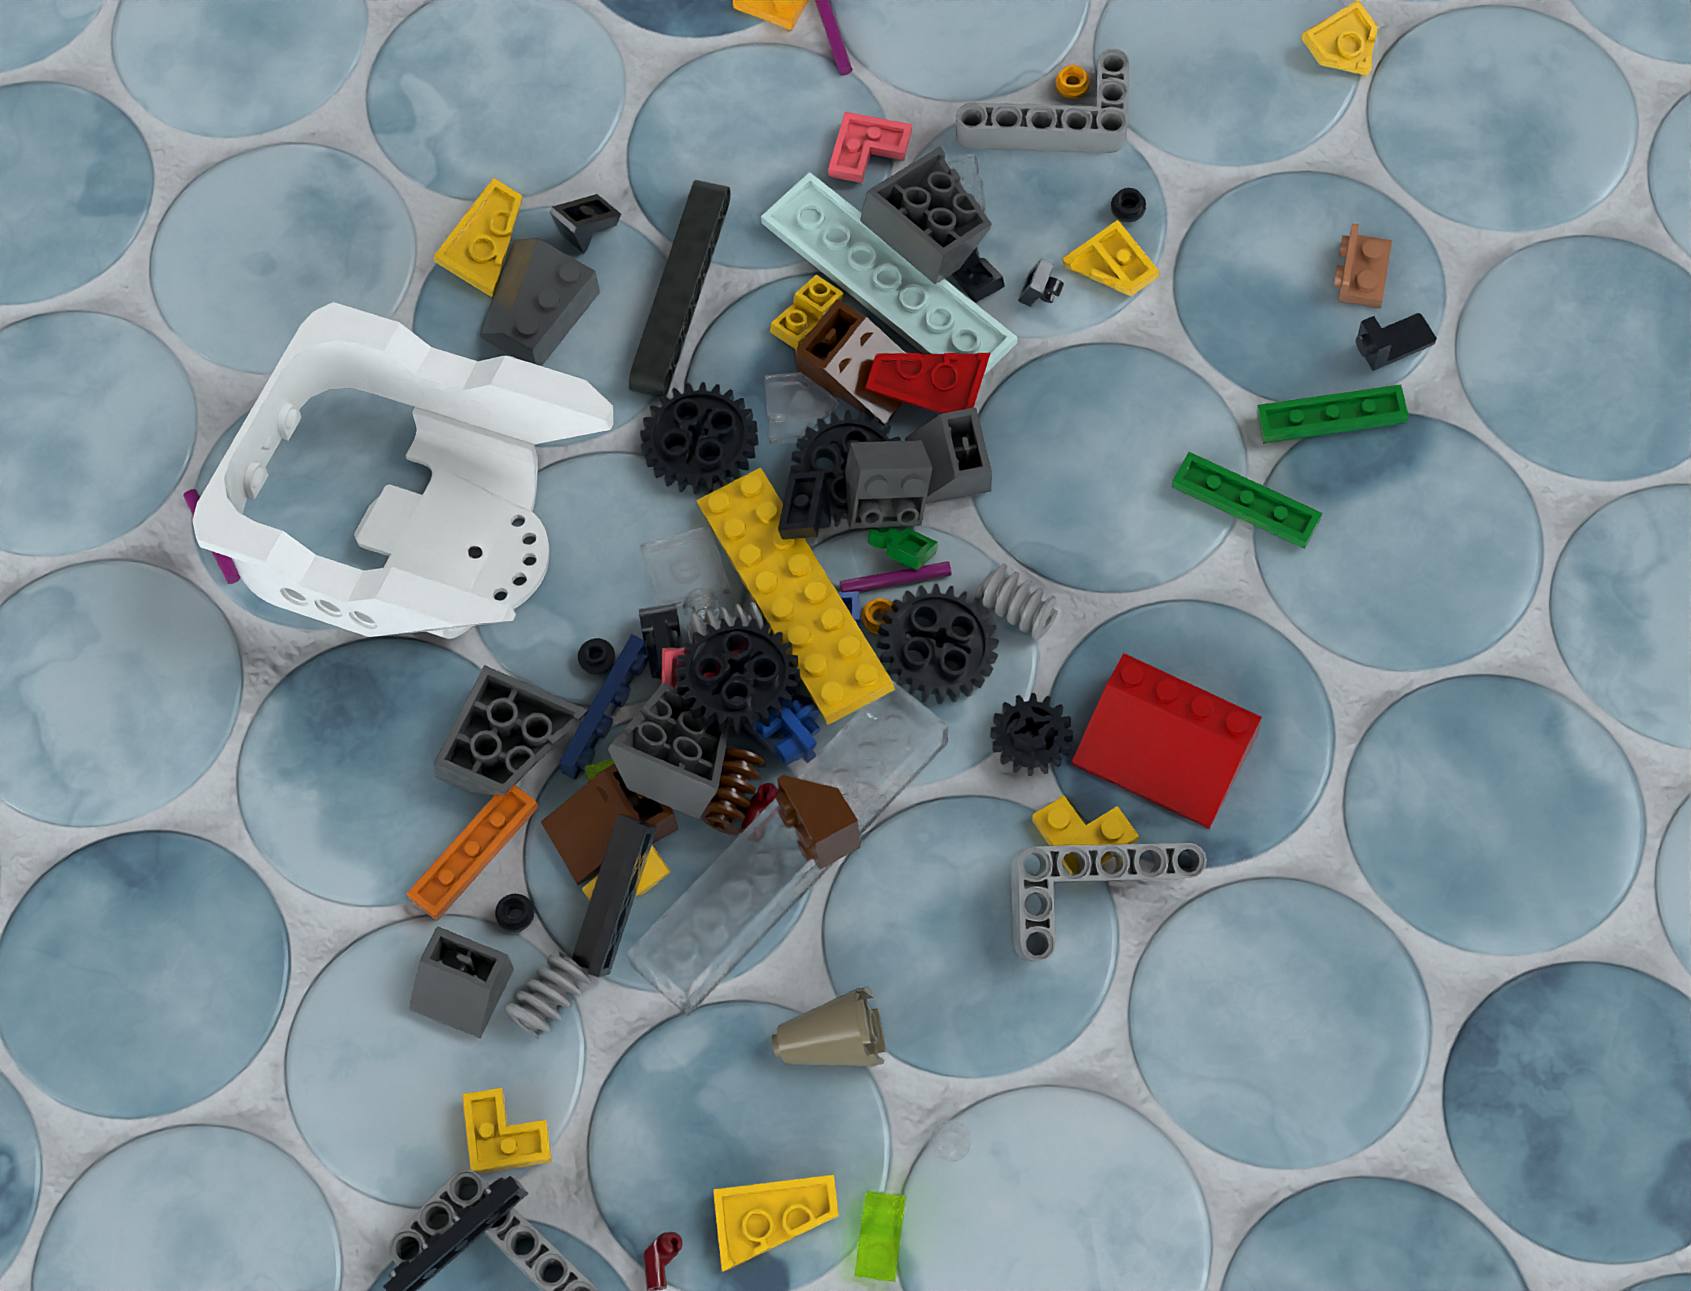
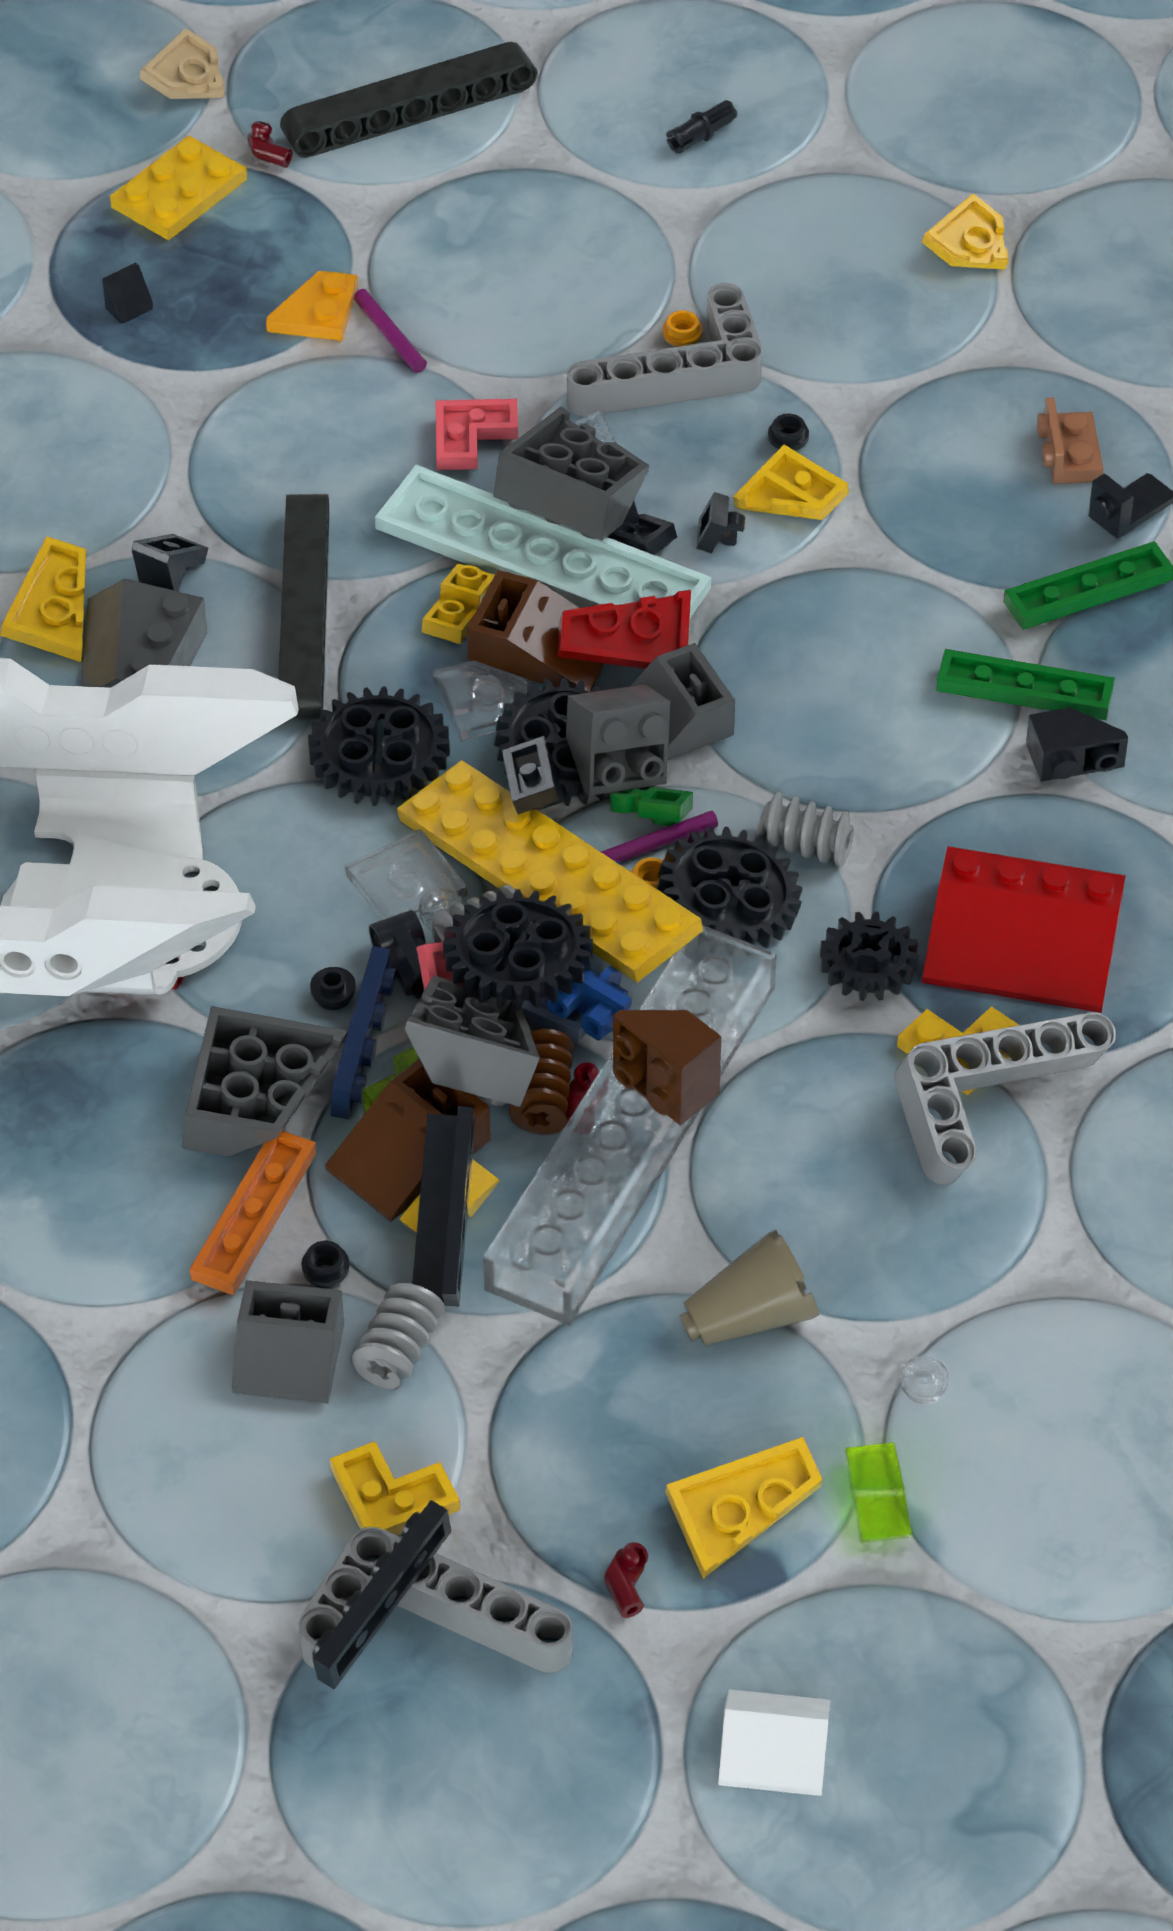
camera: 20 degrees left, 15 degrees down
(1266, 569) = (1073, 744): none -> black slope

